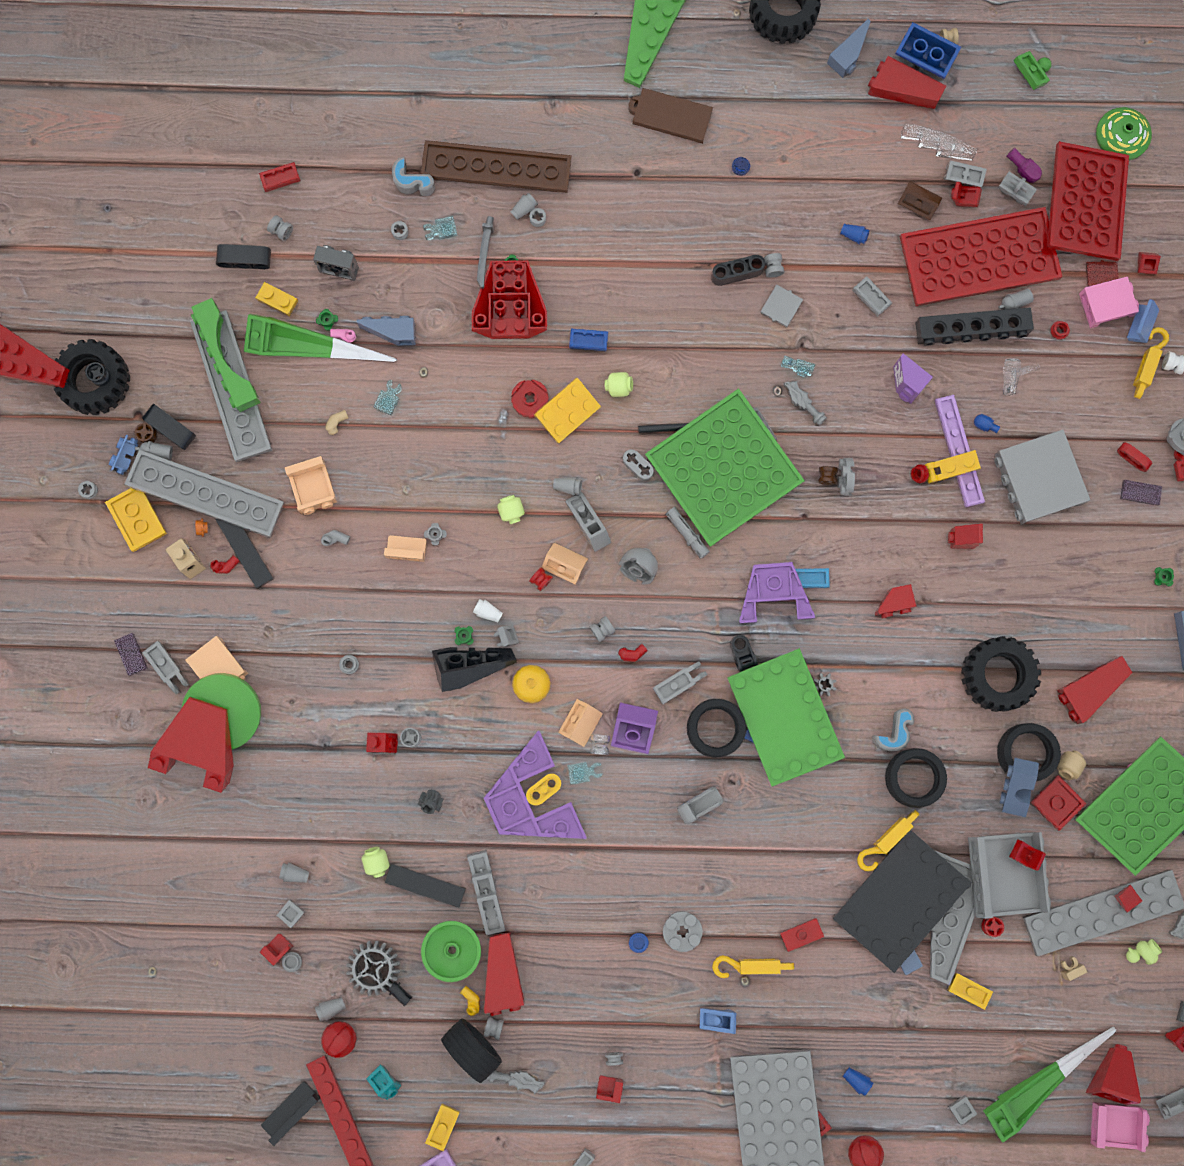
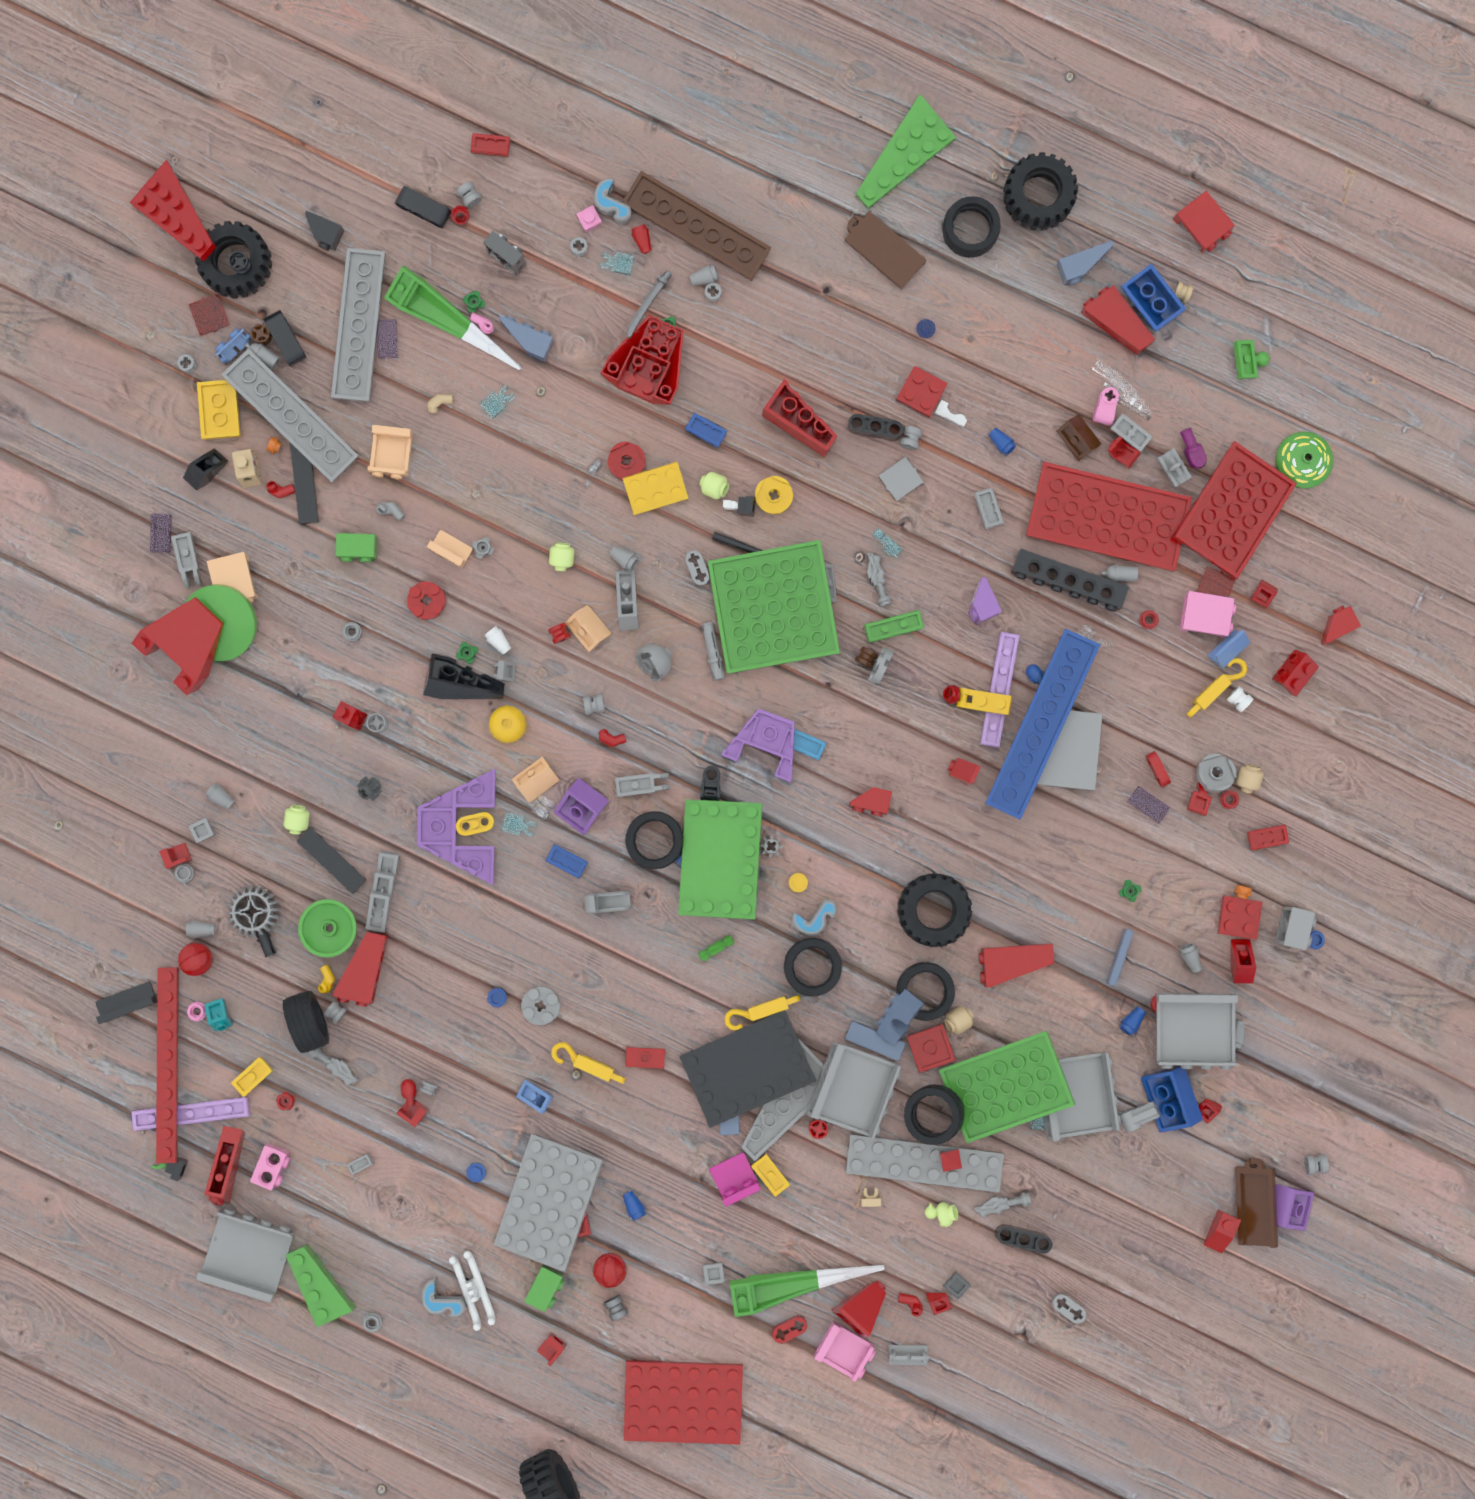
camera: 25 degrees right, 5 degrees up
(89, 437) = (209, 314): none -> clear red piece
(146, 577) = (204, 469): none -> black slope
(164, 316) = (324, 231): none -> black slope
(210, 321) = (364, 257): bright green arch -> none
(263, 386) = (387, 339): none -> clear purple tile
(276, 299) = (436, 261): yellow plate -> none
(285, 248) = (460, 219): none -> red plate
(318, 584) = (356, 547): none -> bright green brick
(357, 1093) = (191, 1011): none -> bright pink plate
(397, 202) = (589, 218): none -> bright pink plate
(406, 594) = (418, 608): none -> red plate
(453, 198) = (642, 238): none -> red cone
(479, 1136) = (280, 1101): none -> red plate
(597, 1071) = (408, 1091): none -> red cylinder
(644, 785) = (566, 861): none -> blue plate
(655, 390) = (745, 505): none -> black piece
(668, 293) = (797, 418): none -> red wedge
(683, 362) = (783, 490): none -> yellow plate
(695, 1119) = (476, 1172): none -> blue plate
(742, 41) = (971, 204): none -> black tyre
(763, 222) = (921, 391): none -> red plate
(788, 230) = (943, 412): none -> white piece
(818, 801) = (716, 948): none -> bright green axle
(838, 437) = (894, 626): none -> bright green tile
(864, 706) = (798, 882): none -> yellow plate
(932, 165) = (1105, 410): none -> bright pink piece
(940, 1011) = (735, 1179): none -> dark pink bracket
(1002, 821) = (870, 1039): none -> sand blue tile
(1016, 462) = (1042, 724): none -> blue plate
(1027, 855) = (877, 1080): red bracket -> none
(1061, 1133) = (787, 1325): none -> red beam
(1099, 886) = (913, 1124): none -> black tyre
(1157, 1049) = (913, 1302): none -> red arm

